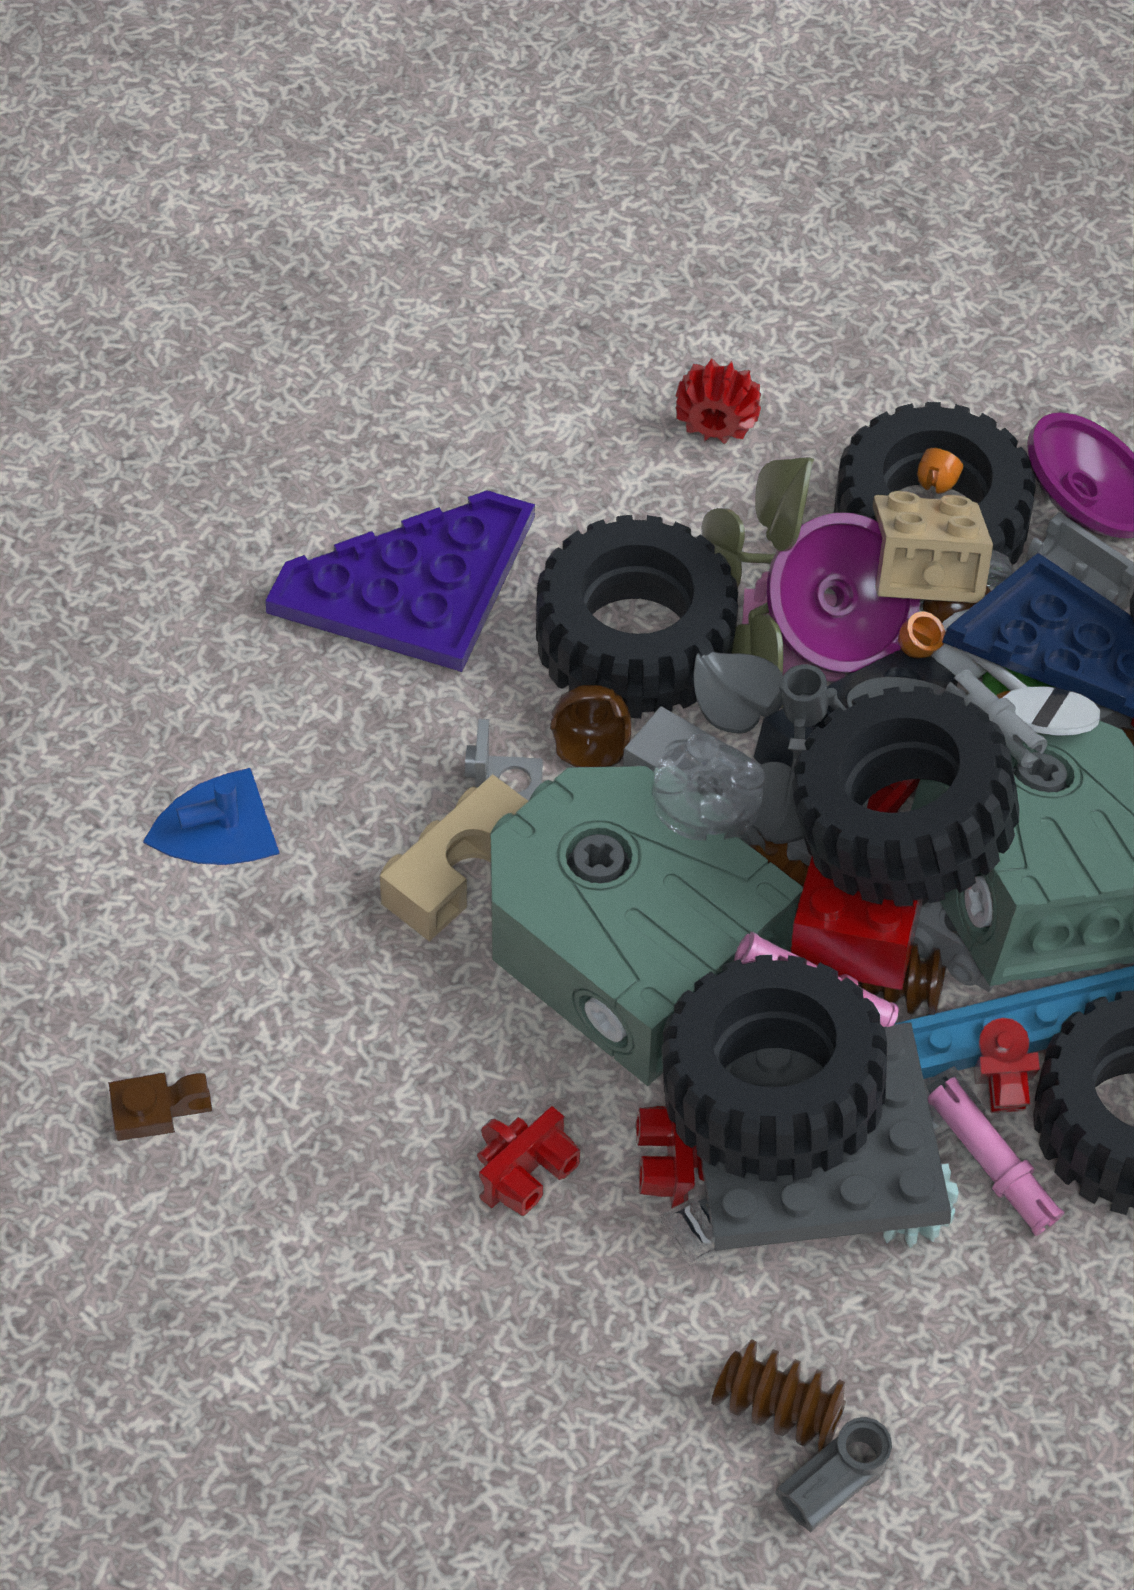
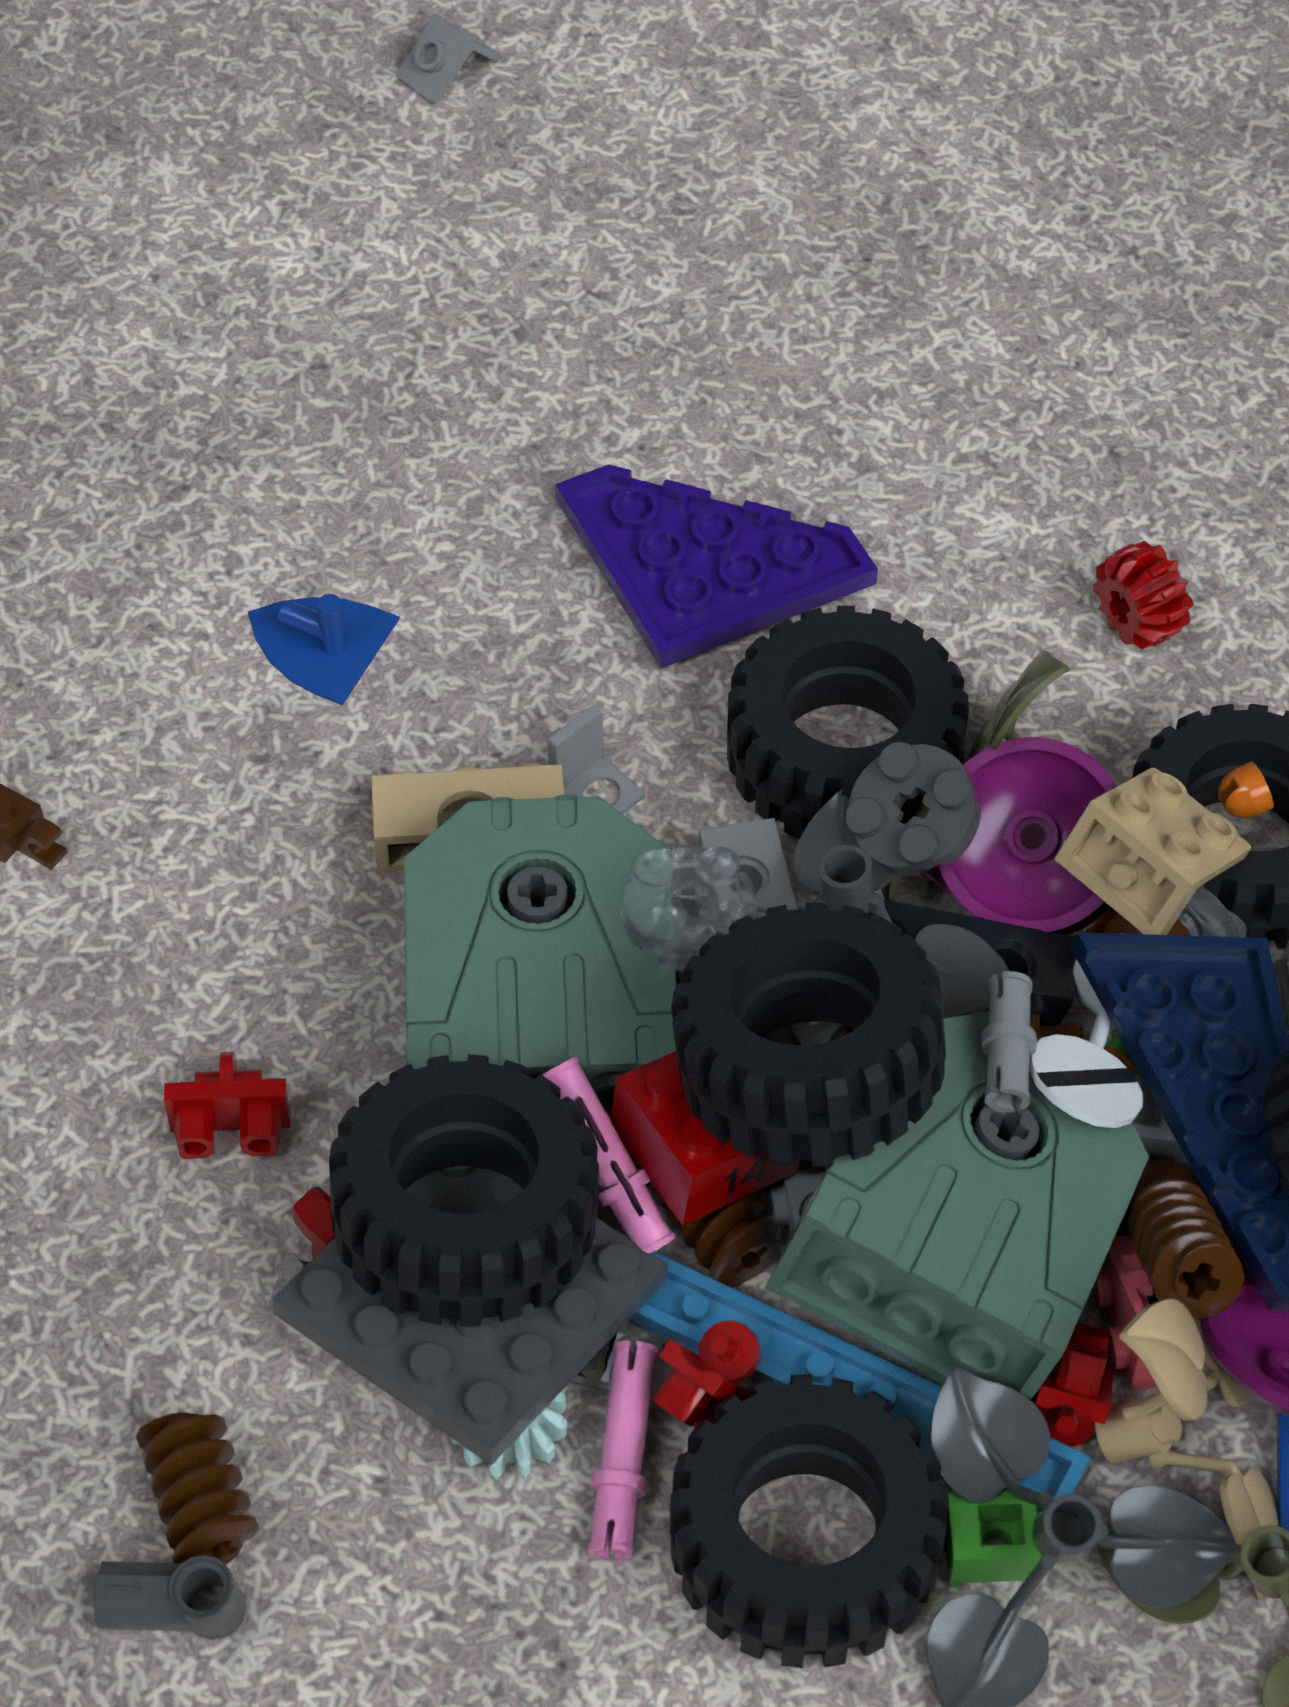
camera: 45 degrees right, 0 degrees up
(595, 715) = (702, 778): reddish brown hair -> none
(786, 602) = (901, 775): none -> dark grey plate
(921, 635) = (1075, 918): orange hinge -> none

